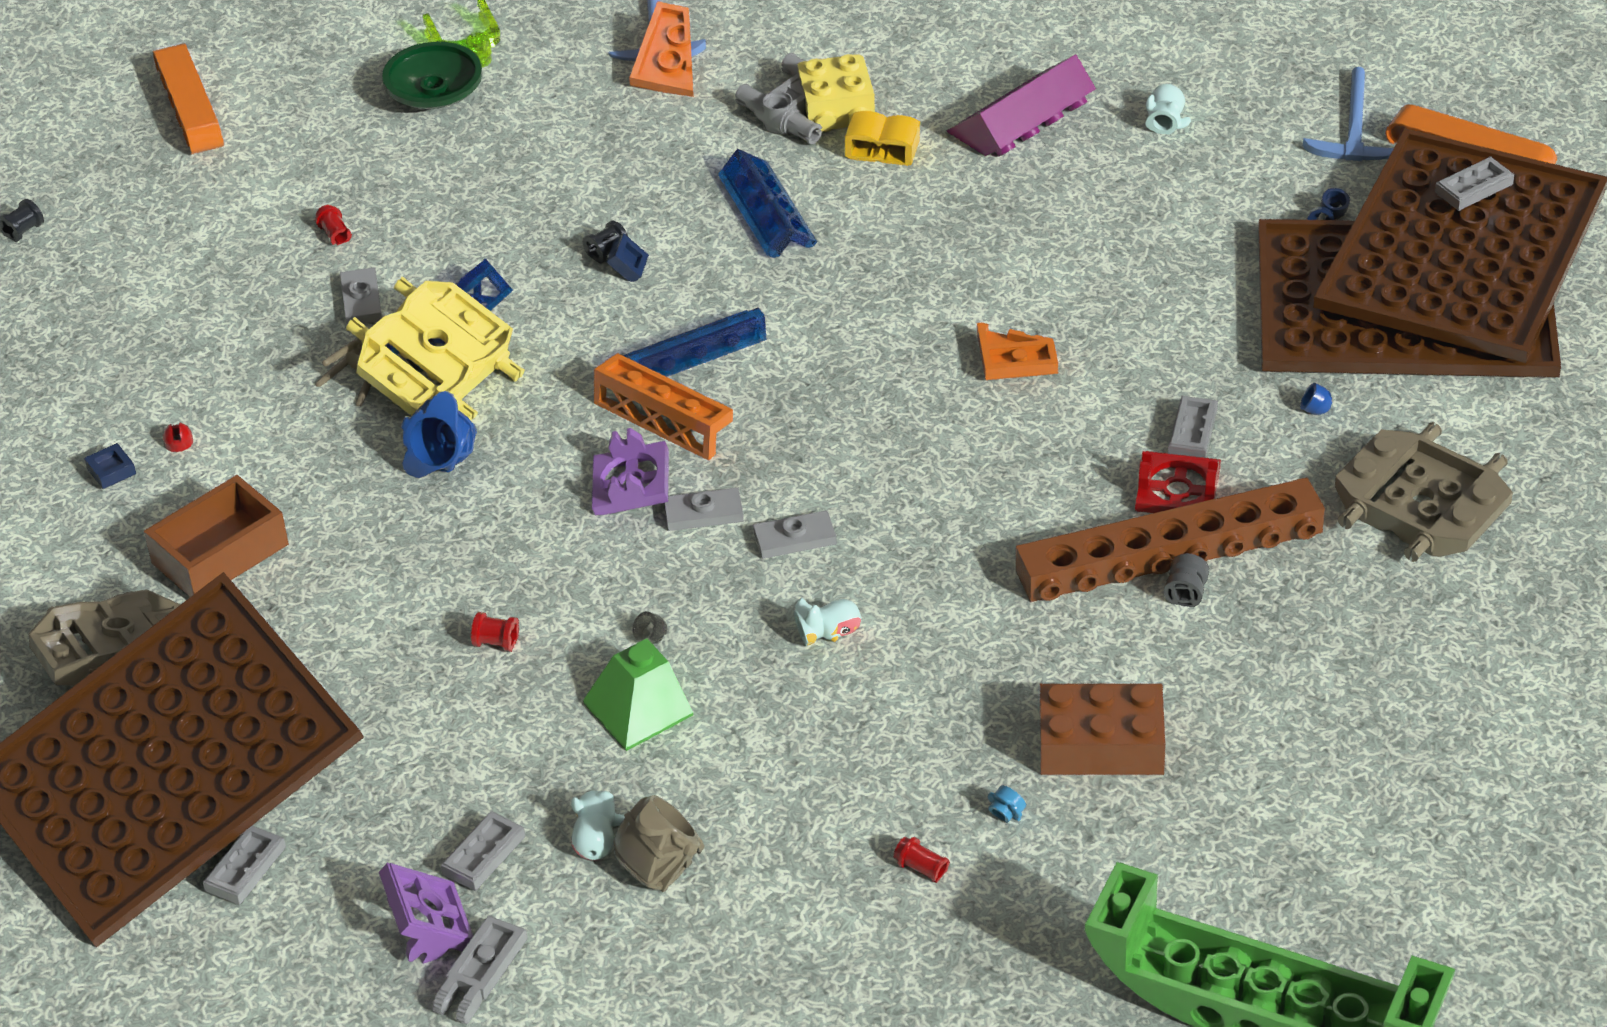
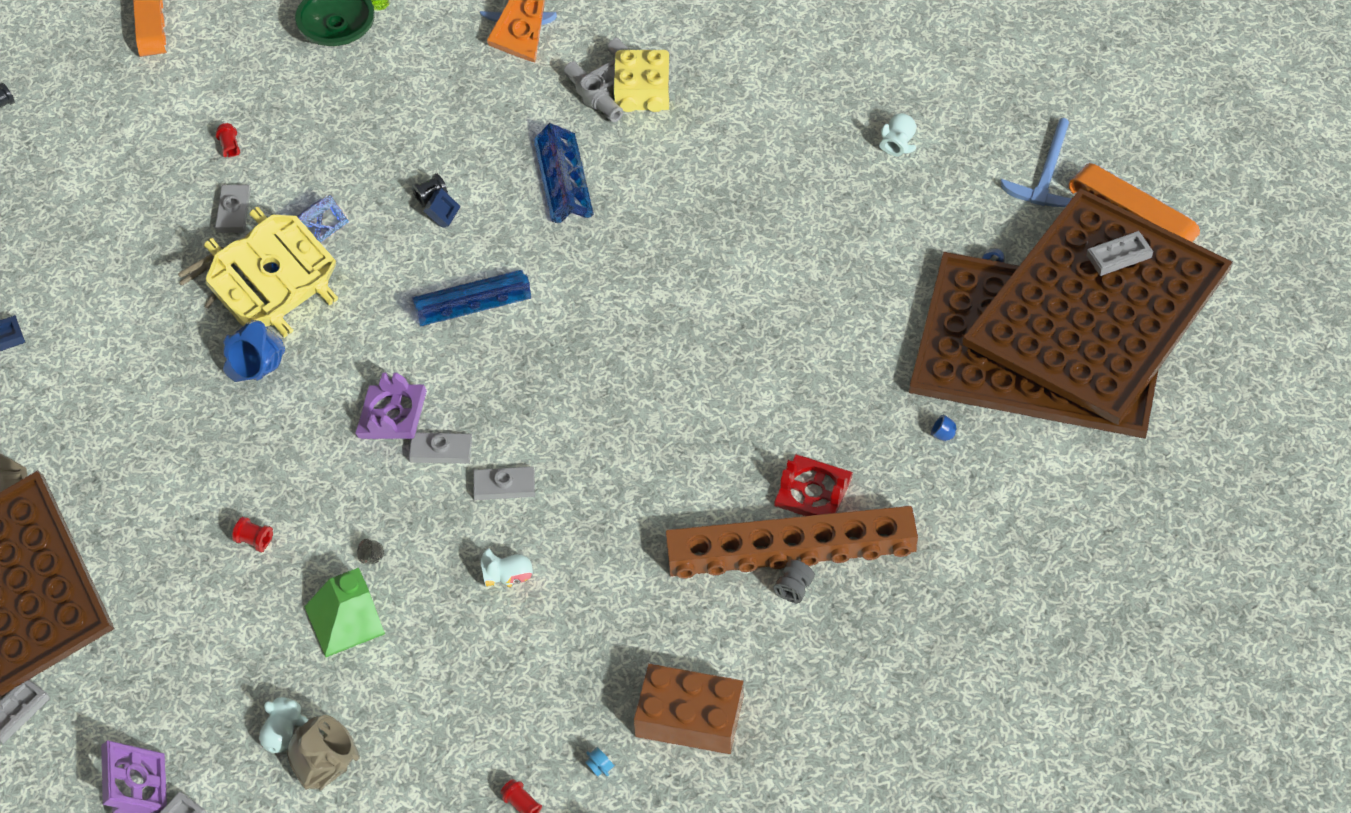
camera: 10 degrees right, 10 degrees up
(177, 445) = (69, 313): red hinge -> none
(216, 534) = (64, 415): dark orange piece -> none
(483, 850) = (192, 730): light grey plate -> none
(660, 397) = (430, 349): orange fence -> none
(882, 138) = (668, 127): yellow brick -> none
(1015, 354) = (718, 346): orange wing -> none
(1025, 108) = (787, 116): magenta slope -> none
(1193, 426) = (838, 438): light grey plate -> none
(1333, 199) = (1009, 240): dark blue hinge -> none
(1461, 492) = (1037, 535): dark tan piece -> none

